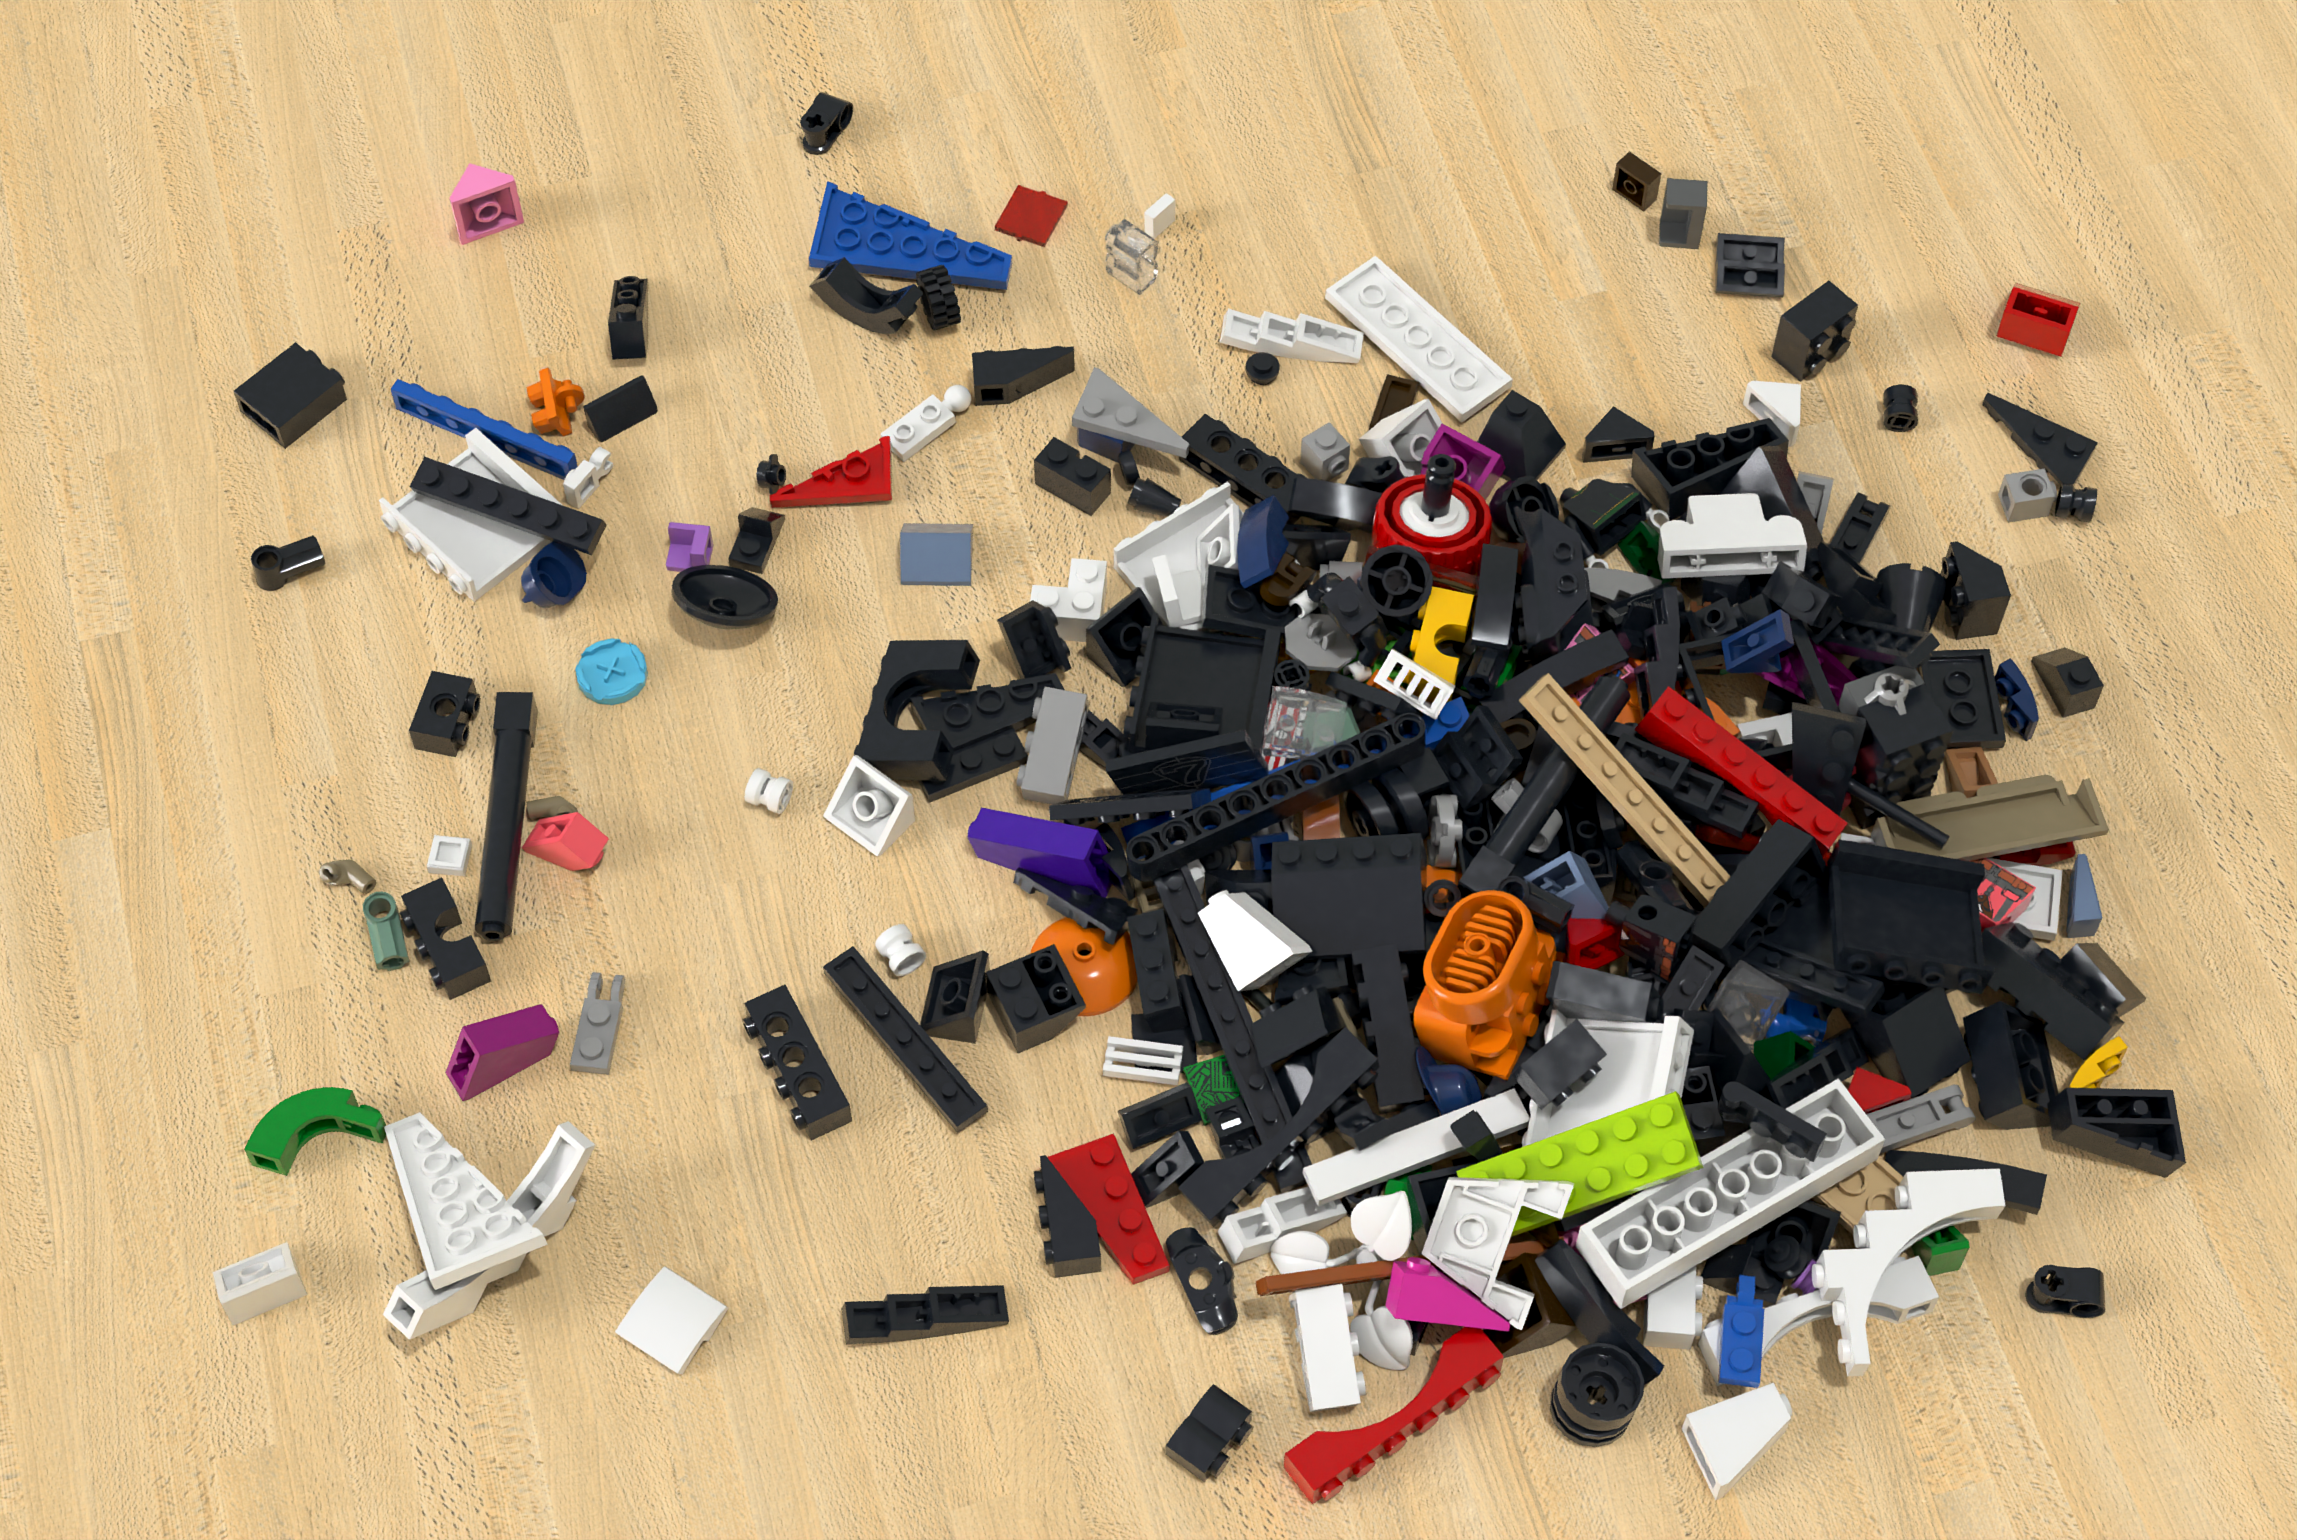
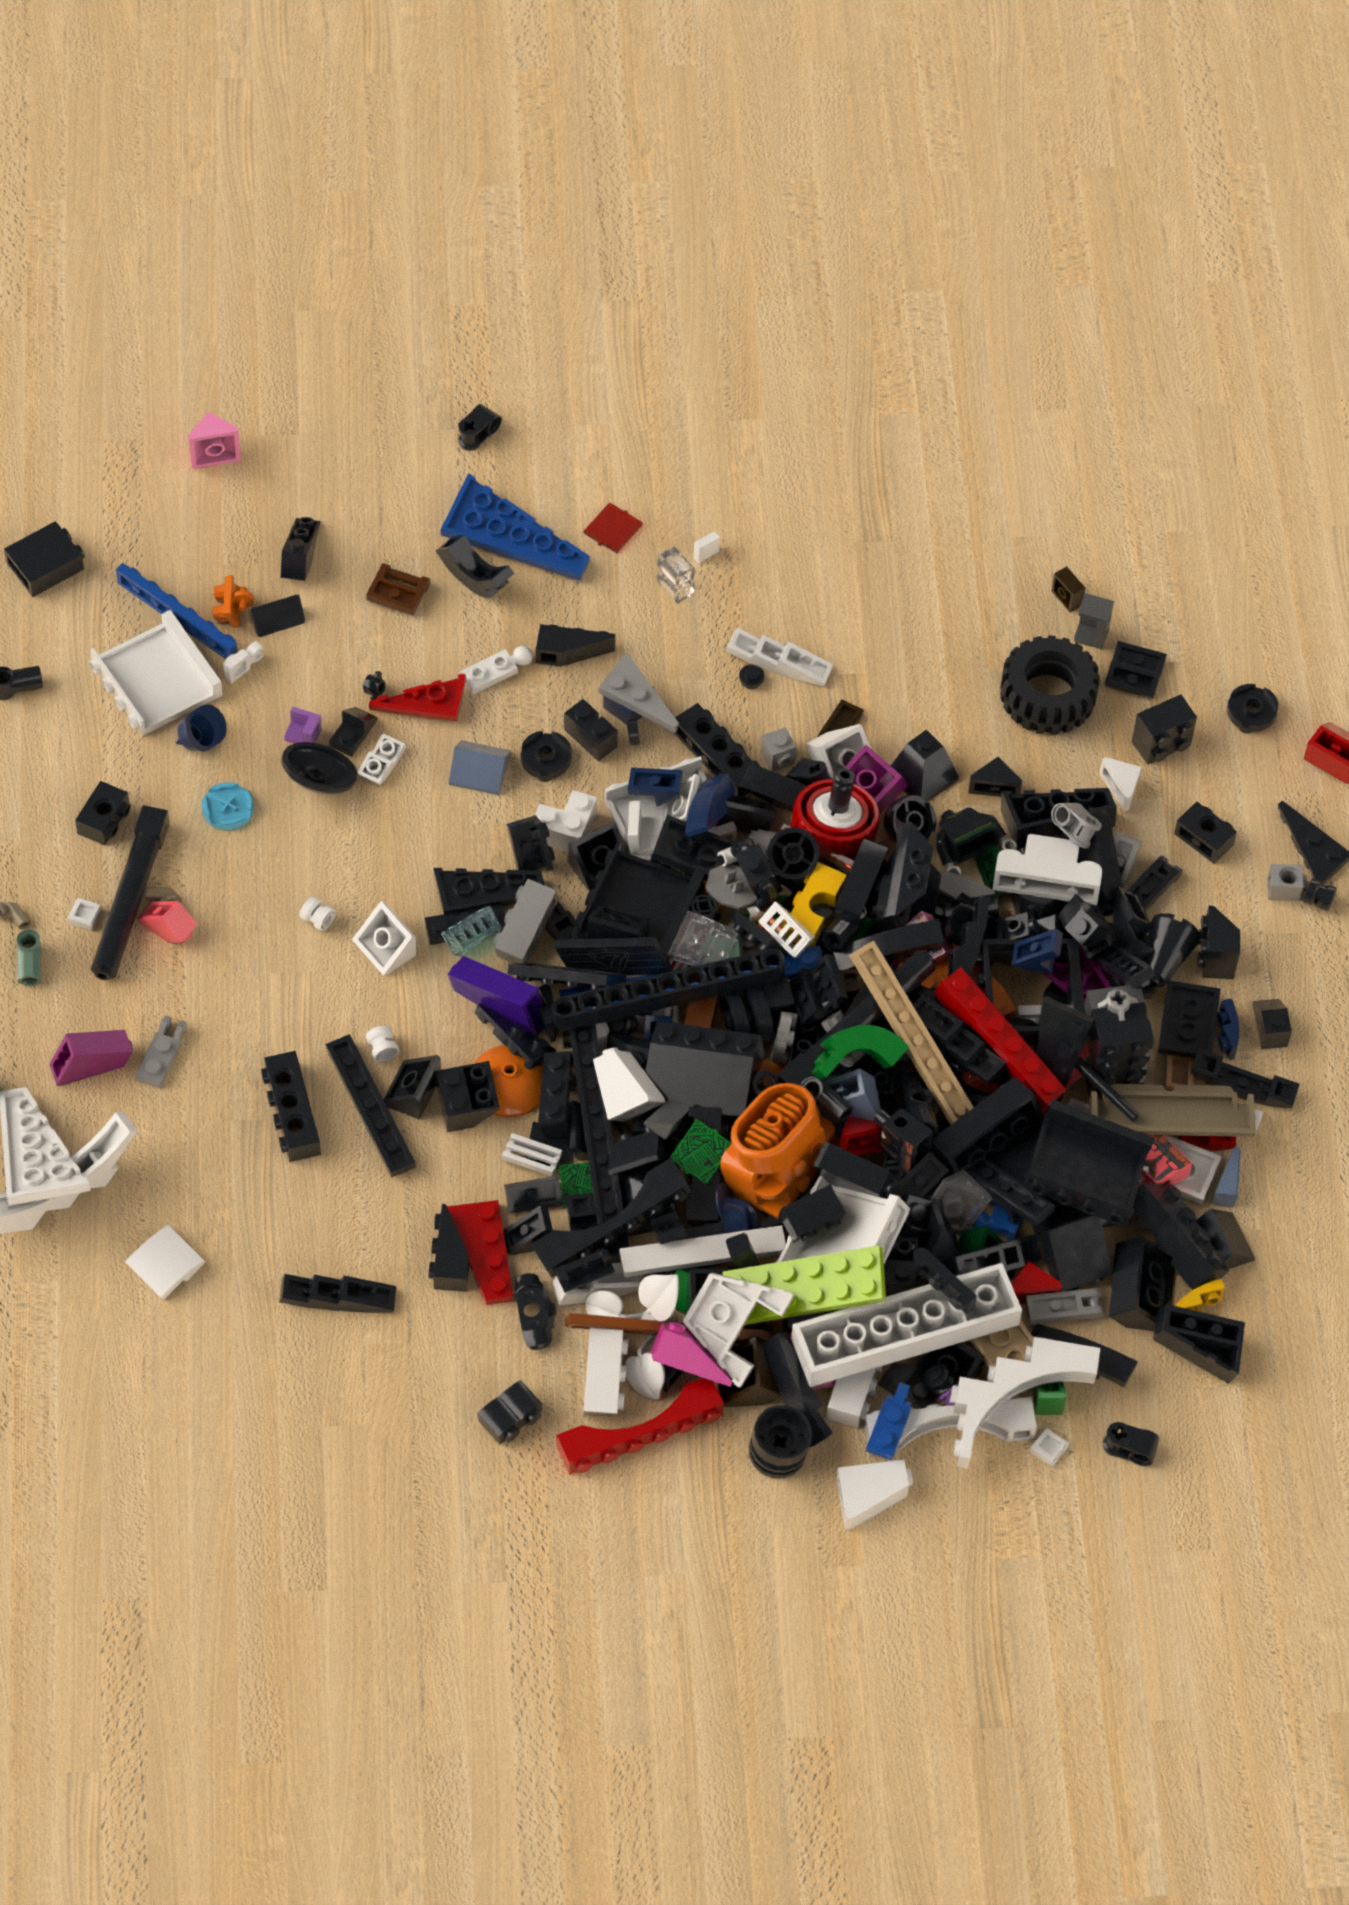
camera: 10 degrees right, 0 degrees up
(455, 963) = (72, 990): black arch -> none
(508, 505) = (180, 671): black plate -> none
(771, 352) = (396, 594): none -> reddish brown plate
(805, 569) = (382, 760): none -> white slope
(905, 673) = (435, 848): black arch -> none
(938, 297) = (526, 577): black tyre -> none
(956, 782) = (450, 934): none -> clear light blue slope
(1021, 538) = (546, 768): none -> black plate
(1153, 498) = (644, 757): black cone -> none
(1180, 526) = (660, 783): none -> dark blue slope
(1263, 1208) = (584, 1270): none -> black hinge
(1286, 581) = (719, 837): dark brown plate -> none
(1325, 970) = (669, 1117): none -> dark grey slope
(1382, 1009) = (700, 1151): none -> green piece
(1418, 339) = (872, 677): white plate -> none
(1581, 810) = (873, 1040): none -> green arch
(1651, 270) = (1052, 658): none -> black tyre
(1753, 473) = (1075, 823): none -> light grey piece
(1900, 414) = (1213, 796): black wheel -> none
(1904, 452) = (1210, 844): none -> black brick
(1910, 300) = (1252, 720): none -> black plate
(1957, 1319) = (1049, 1447): none -> white tile
(2016, 760) = (1275, 1092): none -> black slope

